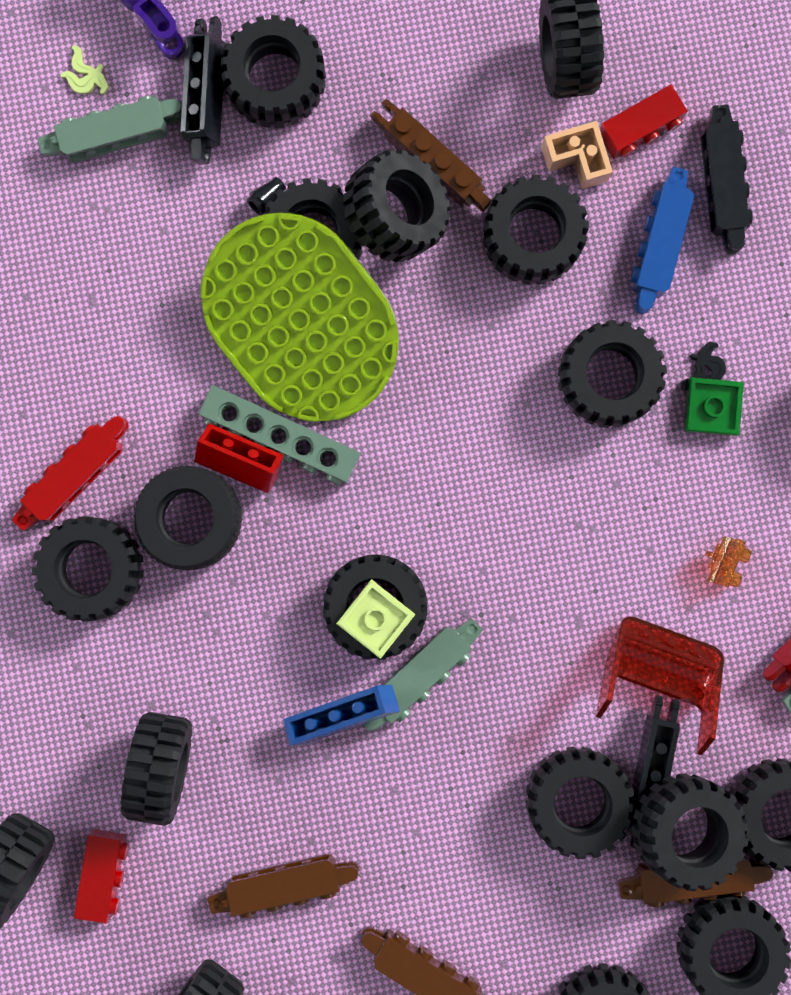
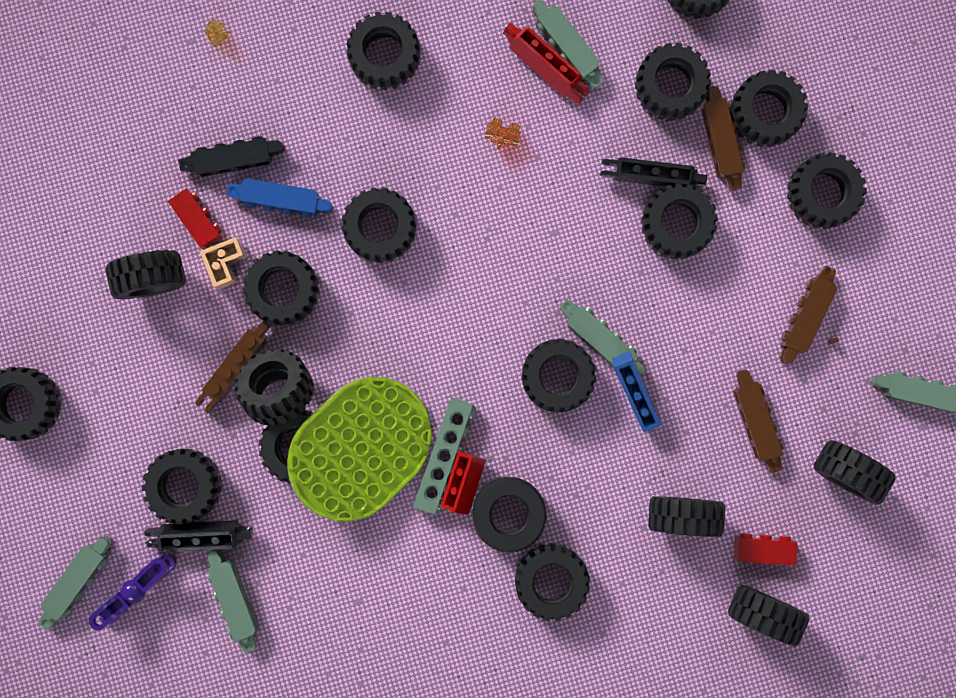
camera: 100 degrees left, 0 degrees up
(72, 474) = (486, 601): red hinge -> none
(93, 76) = (200, 623): yellowish green piece -> none
(261, 195) = (274, 486): black cone -> none
(375, 619) = (567, 373): yellowish green tile -> none
(669, 666) = (578, 170): clear red windscreen -> none
(713, 363) = (364, 153): black piece -> none
(713, 406) = (394, 152): green plate -> none
(720, 847) = (701, 124): black tyre -> none

